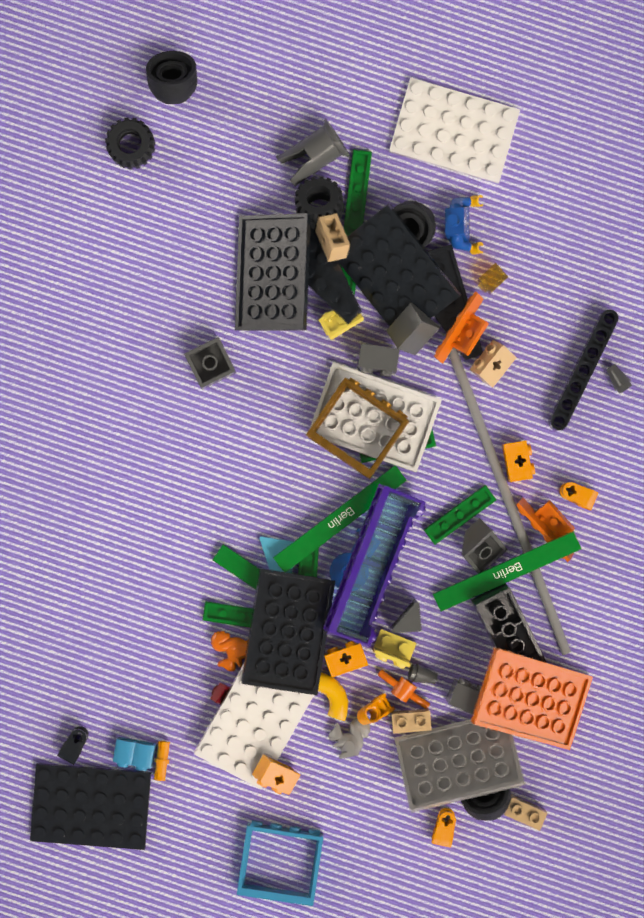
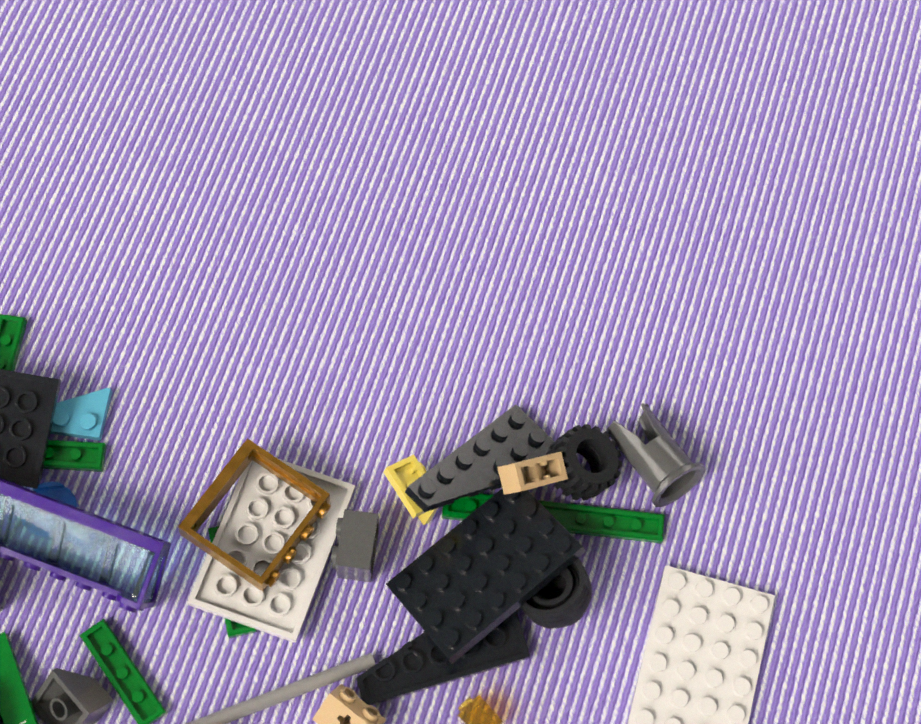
camera: 90 degrees right, 20 degrees down
(122, 129) = (657, 202): black tyre -> none
(172, 76) = (747, 265): black piece -> none
(210, 363) = (355, 319): dark grey brick -> none
(237, 565) = (74, 358): green tile -> none
(273, 272) = (482, 399): black plate -> none
(336, 521) = (124, 491): green tile -> none
(412, 330) = (398, 593): dark grey slope -> none
(458, 223) = (561, 664): blue torso -> none
(465, 330) = (397, 672): orange bracket -> none

